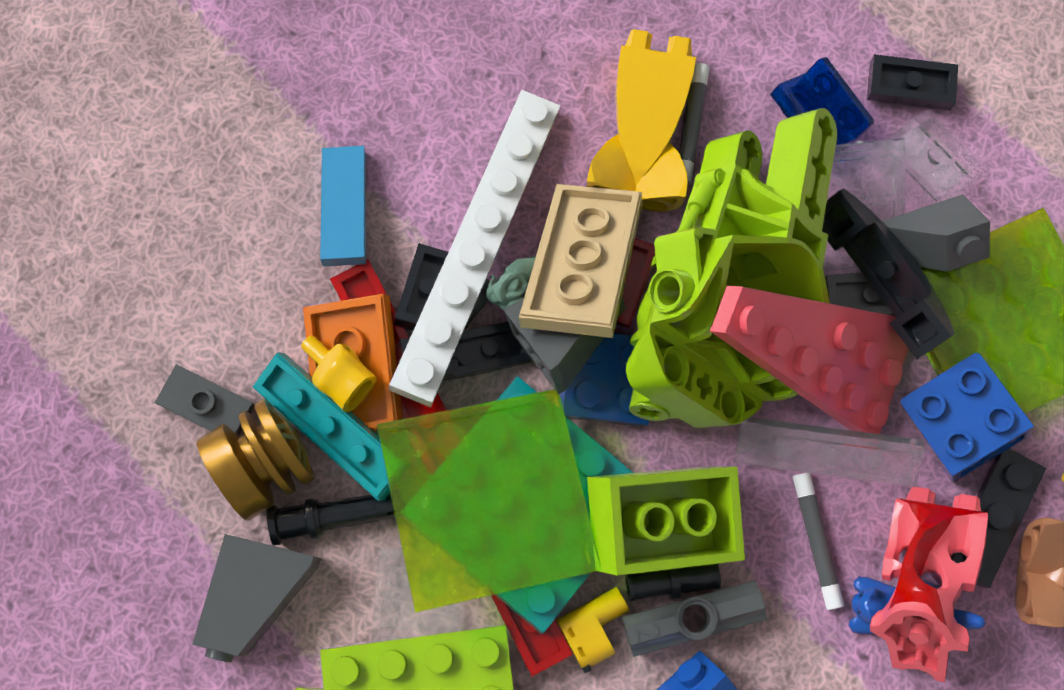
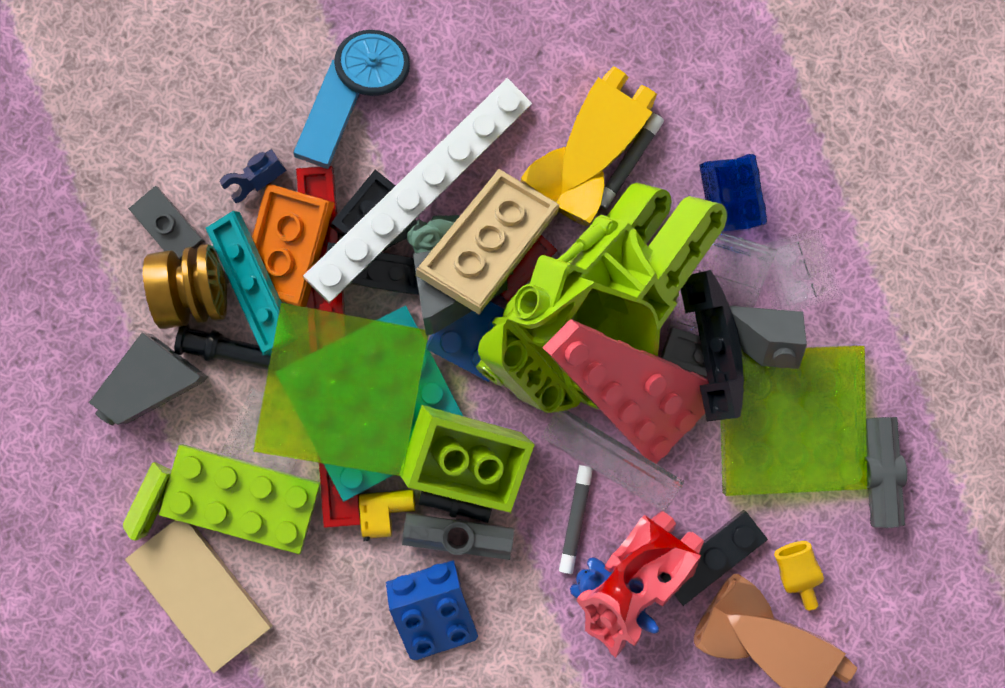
camera: 15 degrees right, 10 degrees up
(289, 300) = (259, 172): none -> dark blue plate
(339, 373) = (272, 248): yellow piece -> none
(367, 134) = (372, 62): none -> dark azure wheel
(912, 82) = (816, 201): black plate -> none
(967, 416) = (723, 478): blue bracket -> none

